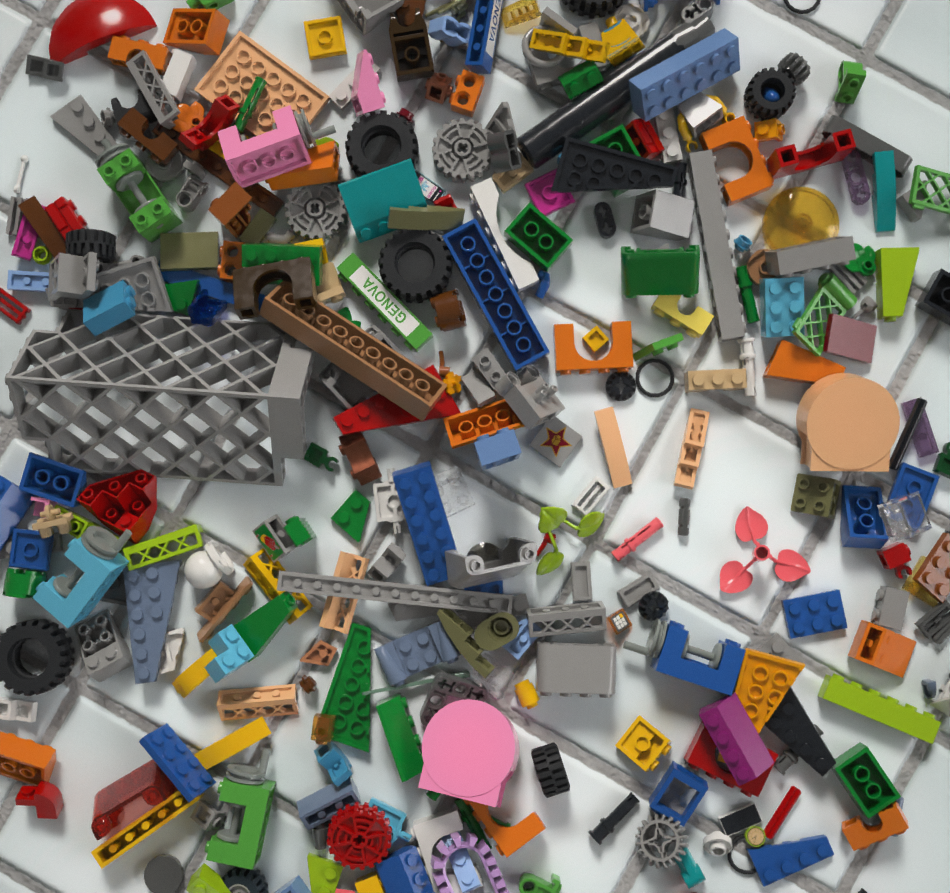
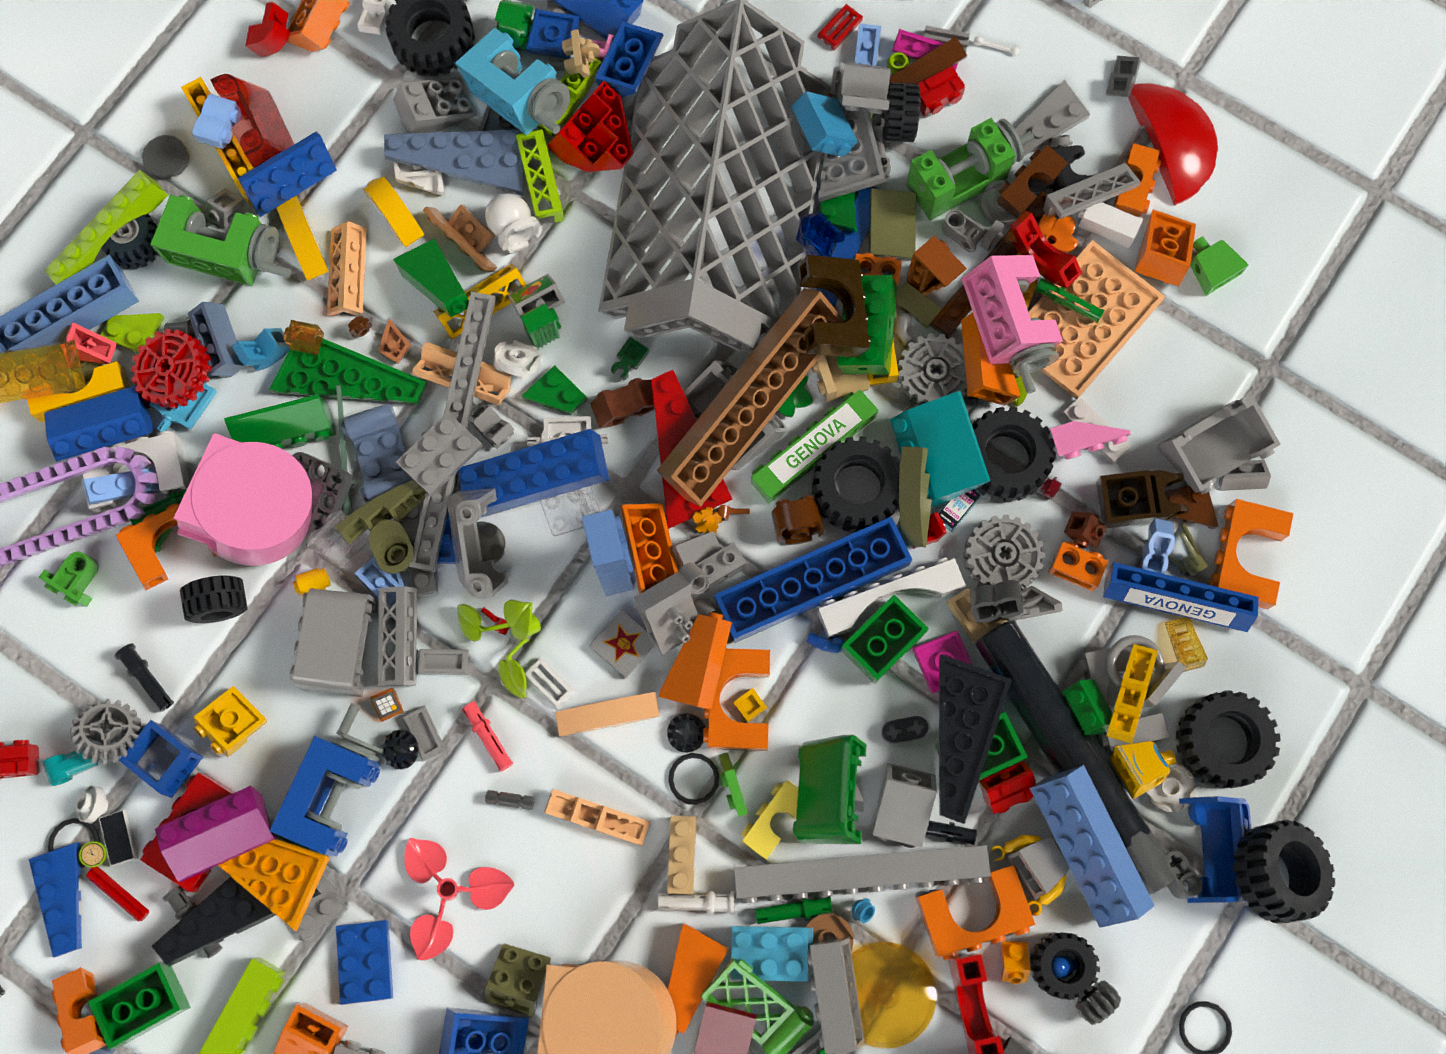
camera: 90 degrees right, 10 degrees down
(134, 829) = (216, 121): none -> light blue brick
(230, 651) = (402, 238): medium azure brick -> none
(325, 37) = (1155, 398): yellow plate -> none
(336, 548) = (507, 361): none -> white plate
(418, 600) = (439, 454): none -> light grey plate
(572, 378) = (699, 663): none -> orange slope
(668, 136) = (1011, 824): white plate -> none

